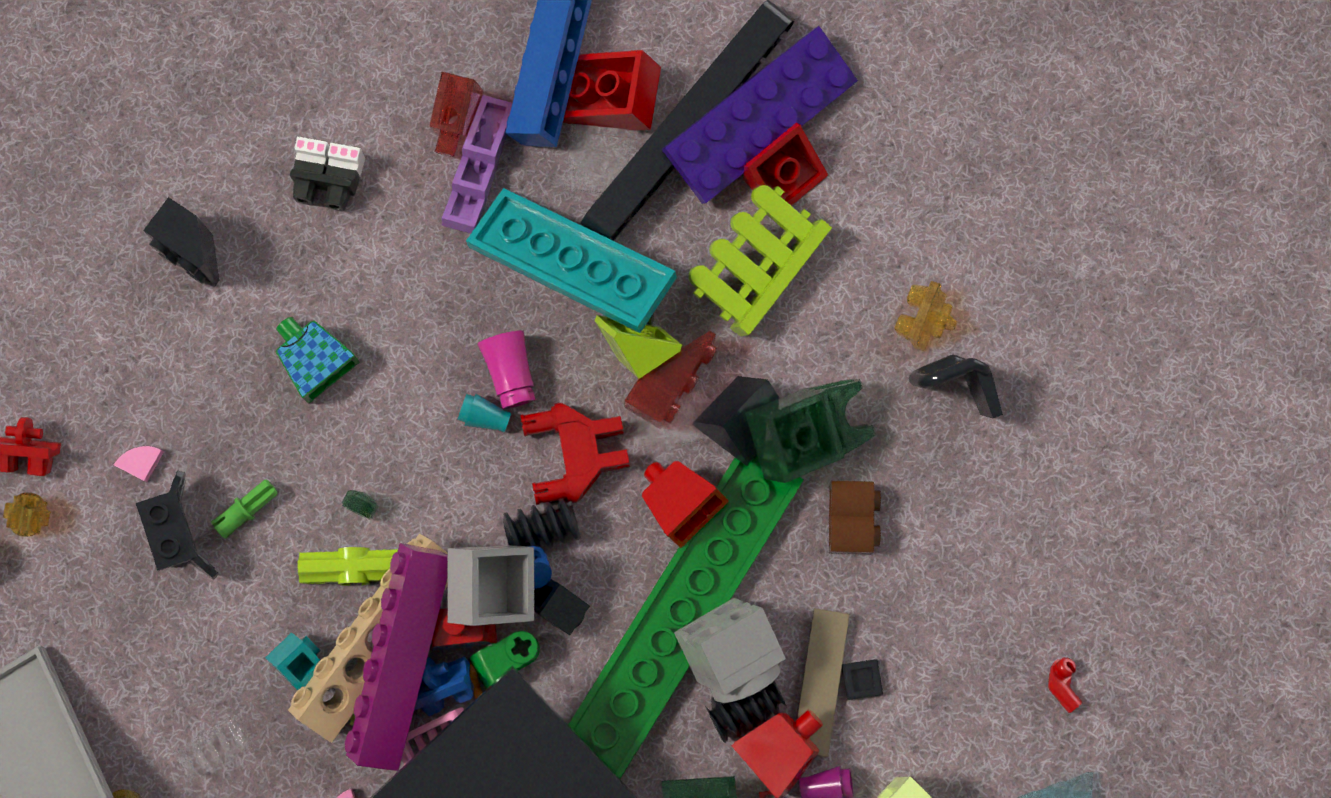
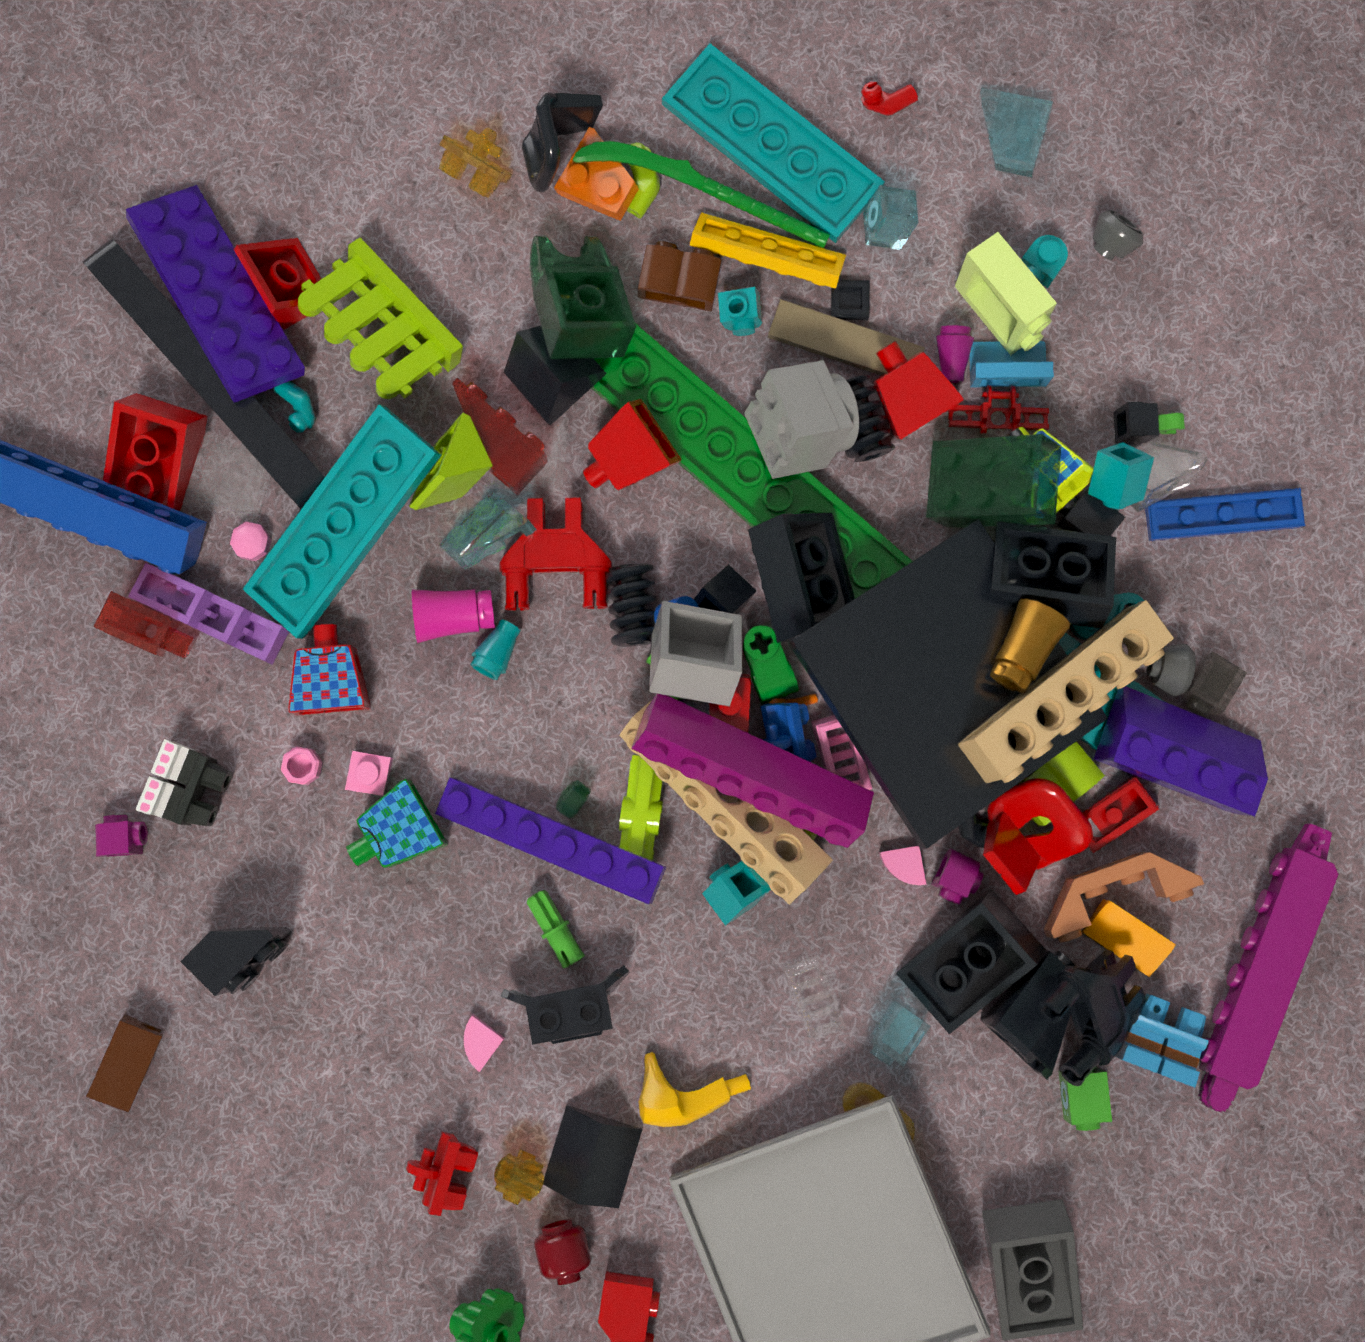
camera: 80 degrees left, 5 degrees up
(50, 575) = (591, 1158): none -> black slope
(86, 170) = (125, 1063): none -> reddish brown hinge
(100, 633) = (668, 1107): none -> yellow animal
(275, 128) = (119, 836): none -> magenta plate
(319, 491) = (551, 840): none -> dark purple plate
(357, 266) = (301, 765): none -> bright pink tile
(359, 324) = (368, 773): none -> bright pink plate
(437, 274) = (327, 676): none -> torso
(547, 187) = (250, 541): none -> bright pink tile
(586, 385) = (484, 531): none -> clear light blue wing
(589, 674) = (800, 570): none -> black slope
(679, 205) = (301, 403): none -> teal arm
(829, 578) = (740, 310): none -> teal plate
(893, 595) = (768, 250): none -> yellow plate
(932, 427) = (597, 185): none -> orange wing
(941, 471) = (648, 185): none -> lime arm
(943, 703) = (890, 217): none -> clear light blue brick
(949, 506) = (684, 172): none -> green piece
(997, 583) = (772, 142): none -> teal plate

